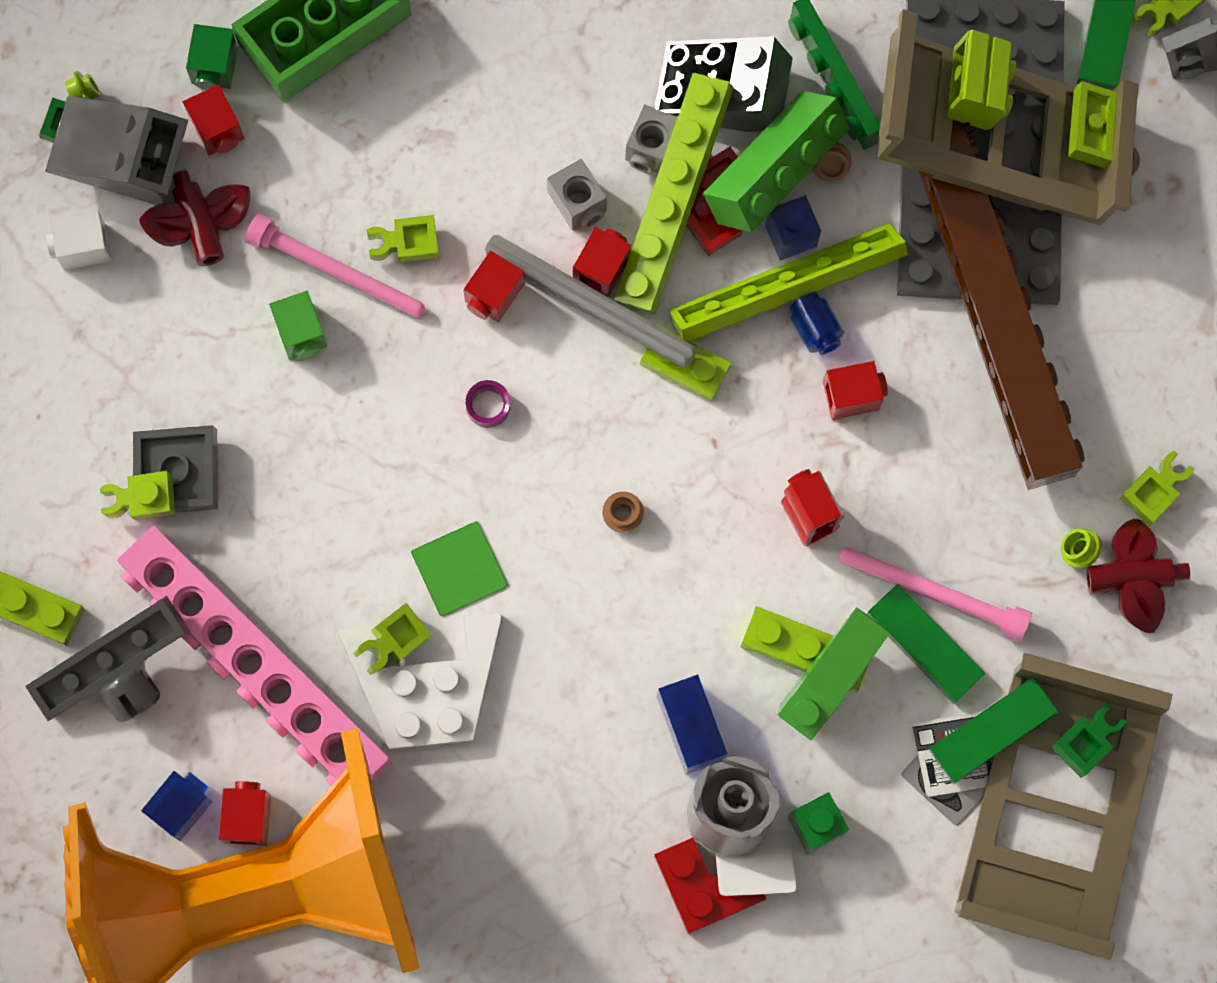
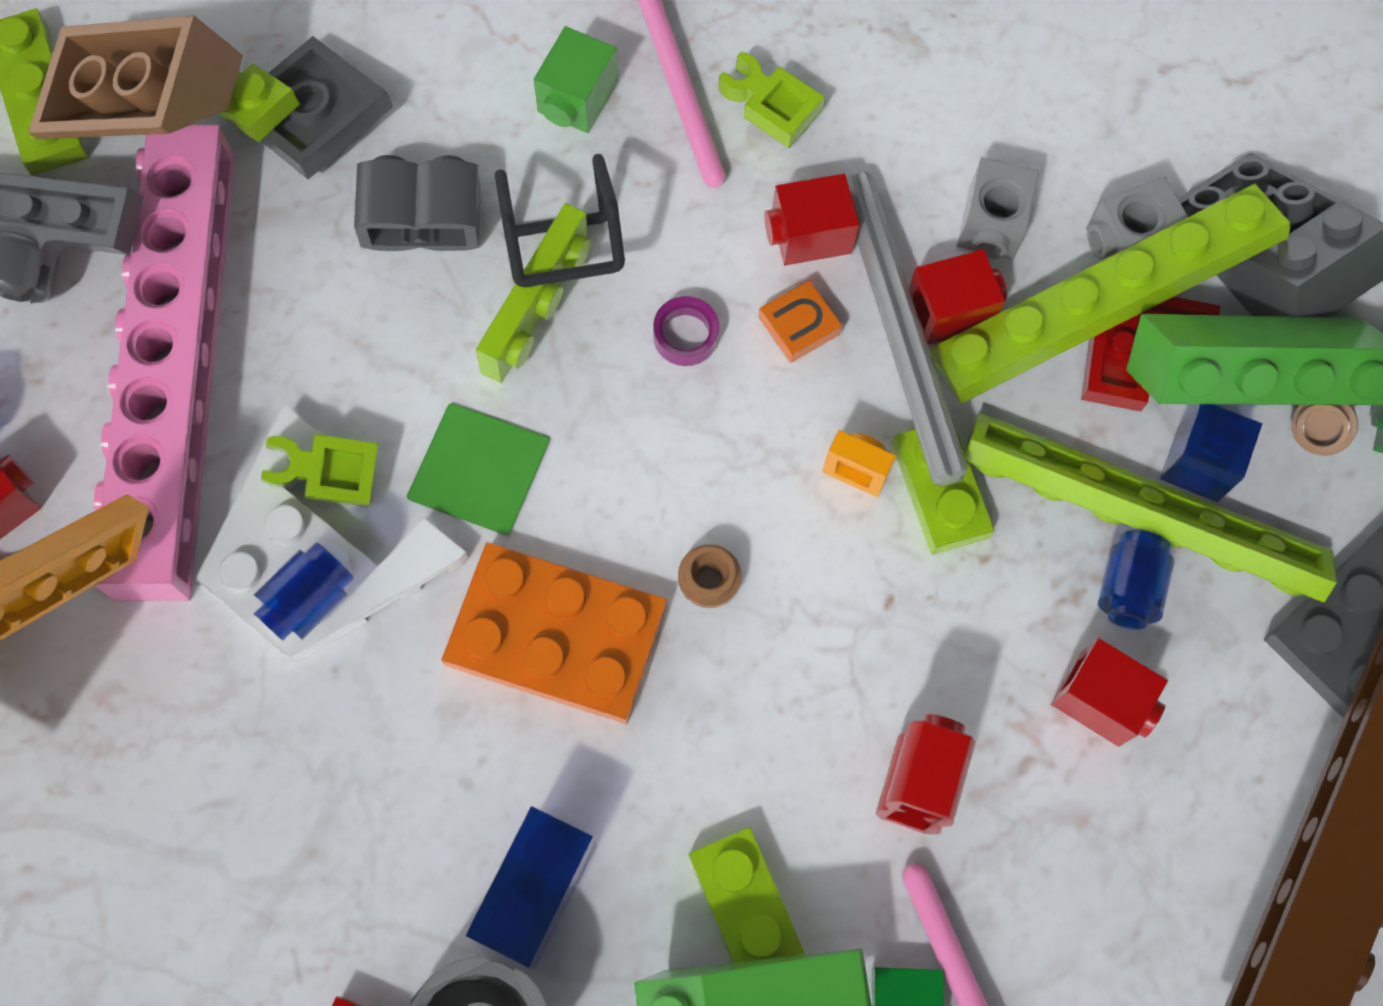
camera: 45 degrees right, 5 degrees down
(92, 547) = (134, 78): none -> medium nougat slope
(290, 467) = (417, 204): none -> dark grey brick
(375, 369) = (607, 212): none -> black piece
(400, 456) = (509, 334): none -> lime plate
(455, 701) = (302, 592): none -> clear blue brick
(537, 345) = (800, 321): none -> orange tile
(579, 607) = (555, 632): none -> orange plate
(638, 389) = (859, 461): none -> light orange plate

